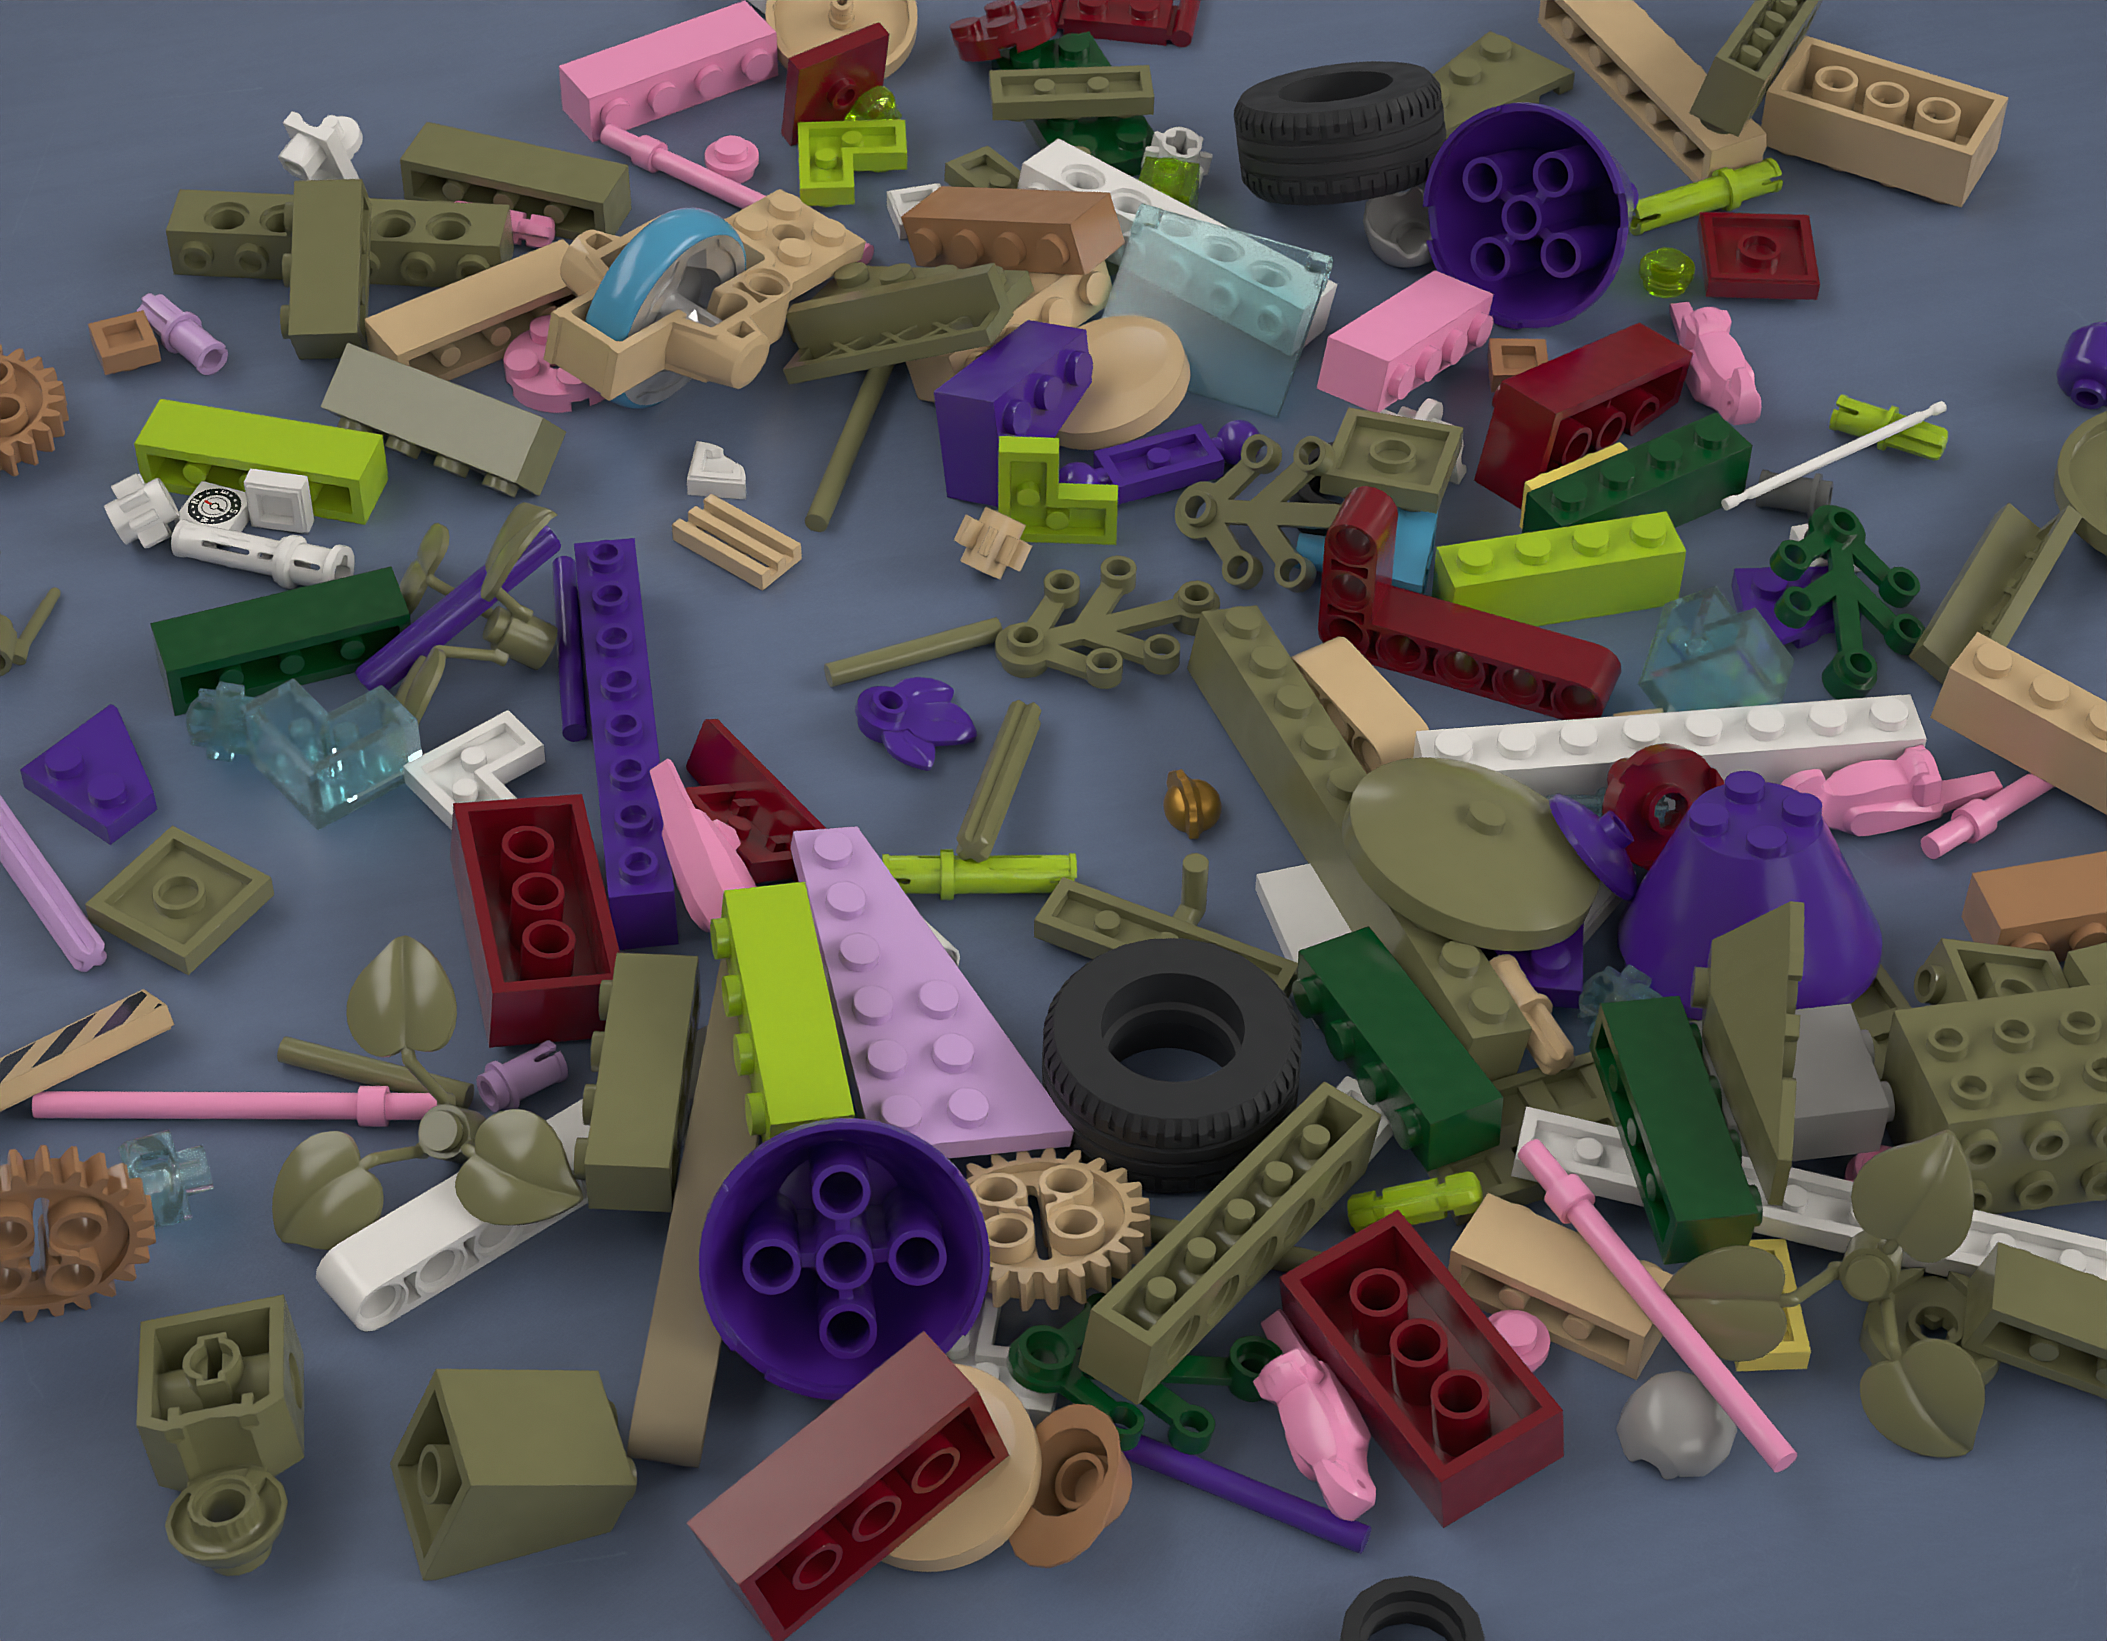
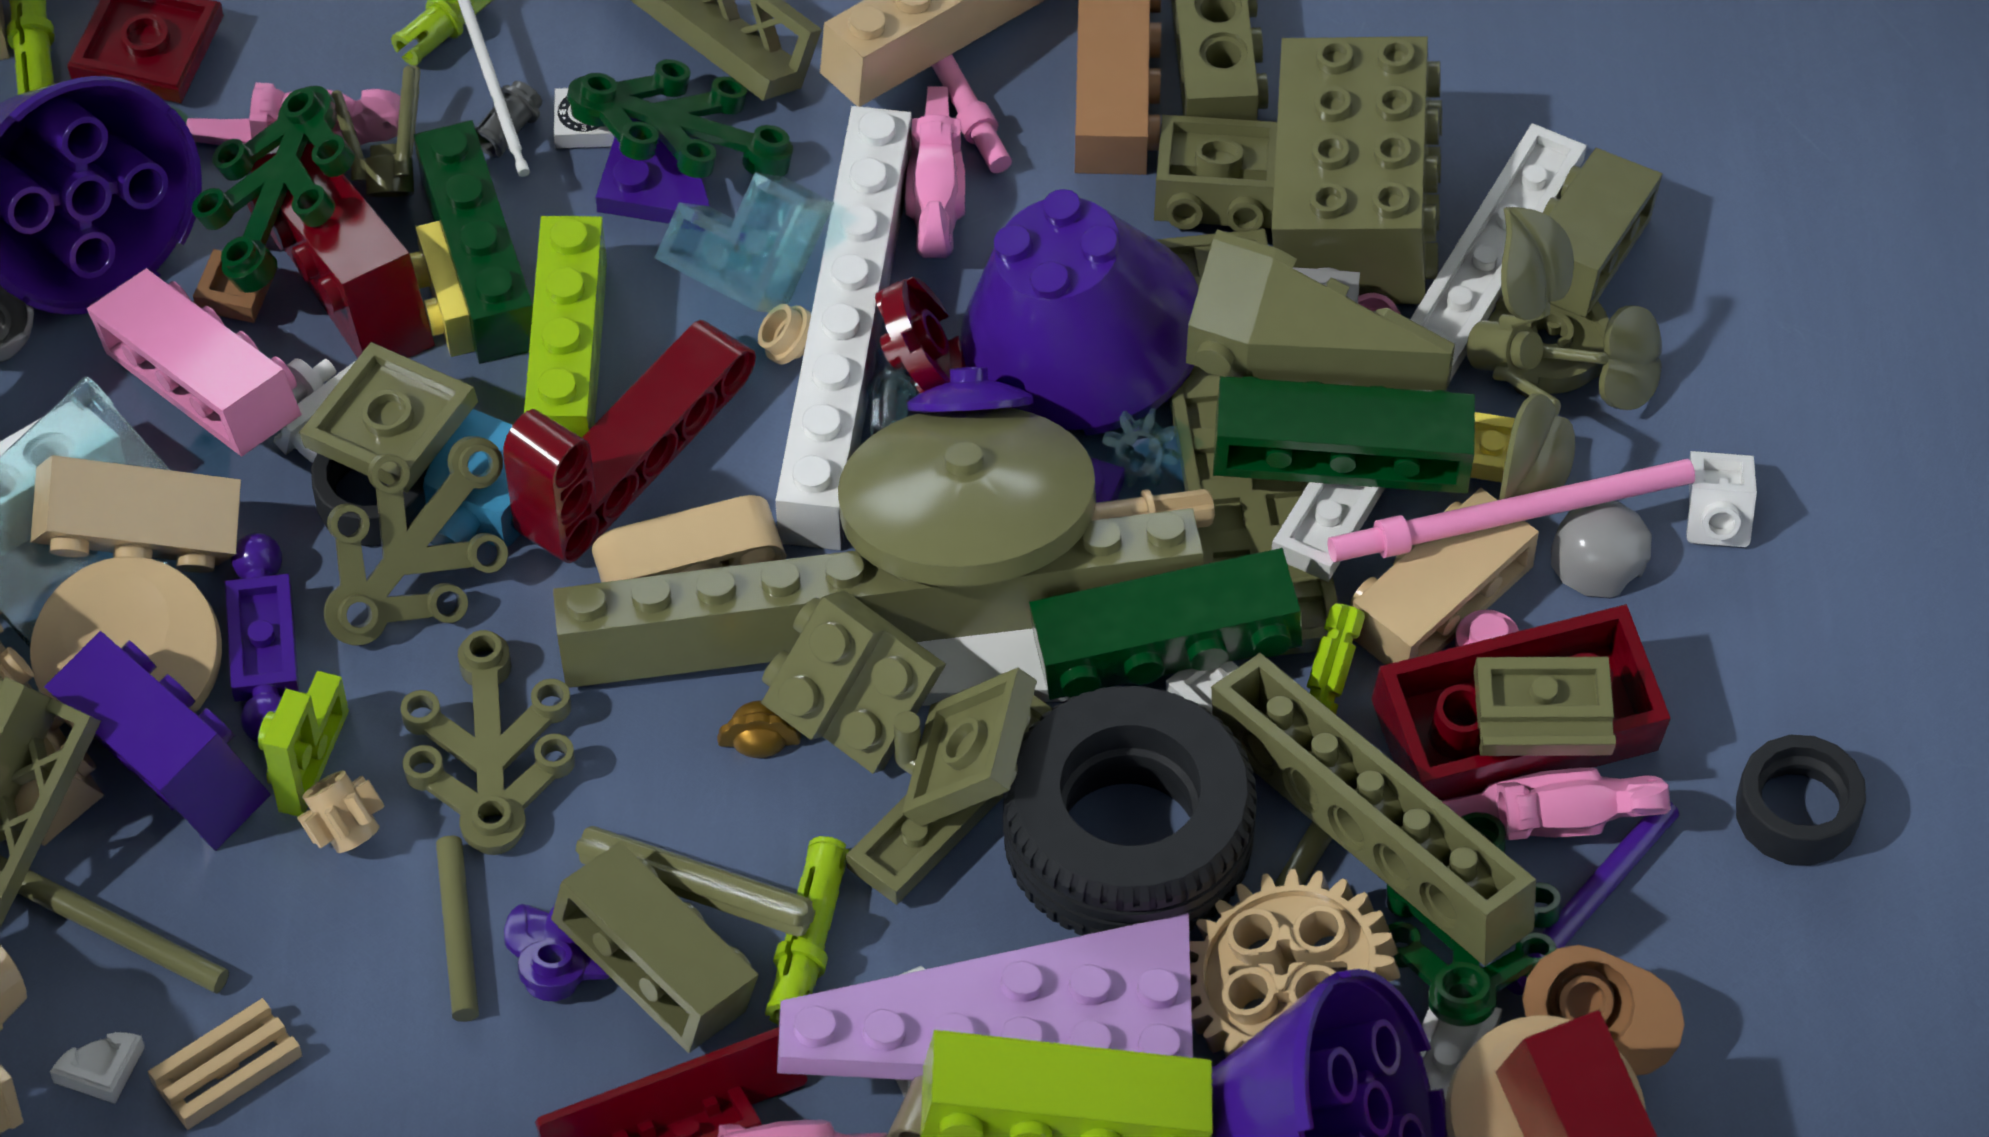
camera: 75 degrees left, 10 degrees up
(918, 761) = (654, 946): none -> olive brick
(1208, 914) = (970, 747): none -> olive plate
(1226, 336) = (135, 512): none -> tan brick
(1246, 819) = (849, 678): none -> olive plate
(1394, 1348) = (1544, 706): none -> olive plate
(1591, 338) = (303, 119): none -> dark green plant
(1685, 410) = (390, 166): none -> olive plant
(1790, 1516) = (1721, 499): none -> white bracket

